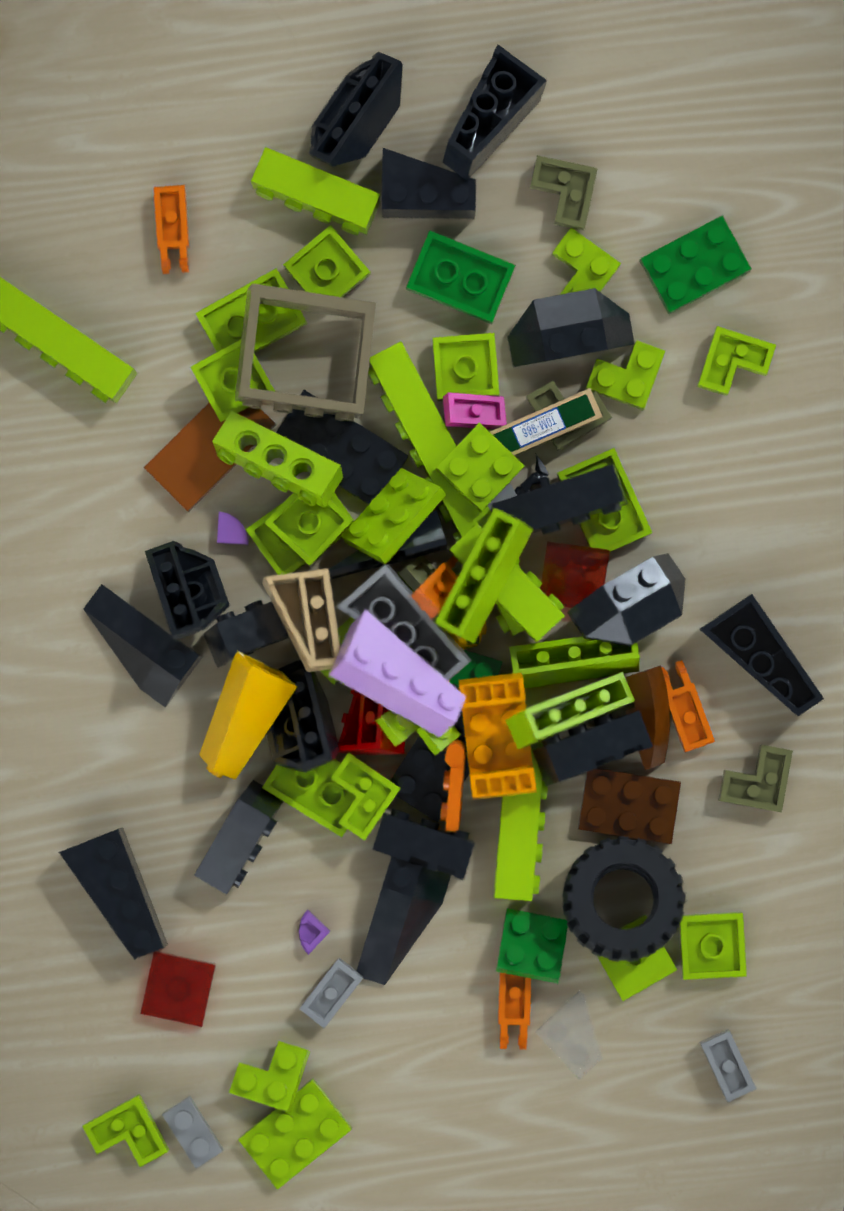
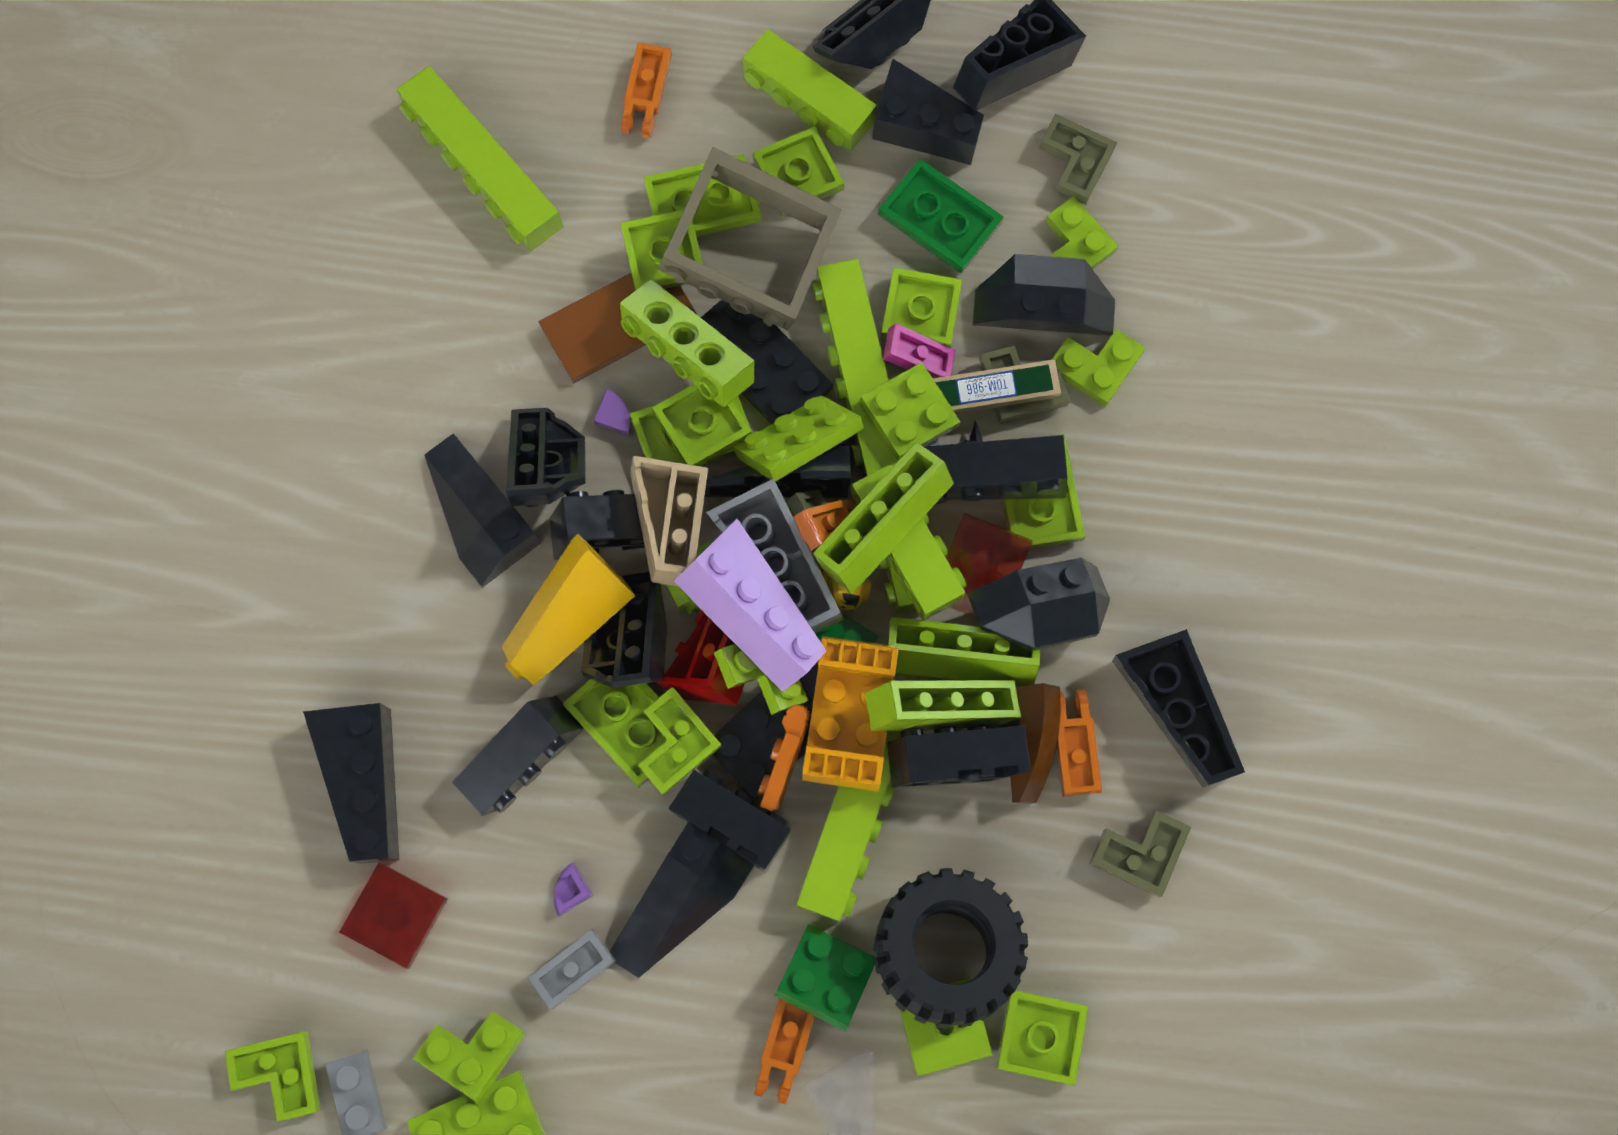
camera: 10 degrees right, 10 degrees down
(629, 805) = (983, 840): reddish brown plate -> none
(695, 264) = (1199, 269): green plate -> none
(731, 351) = (1216, 368): lime plate -> none

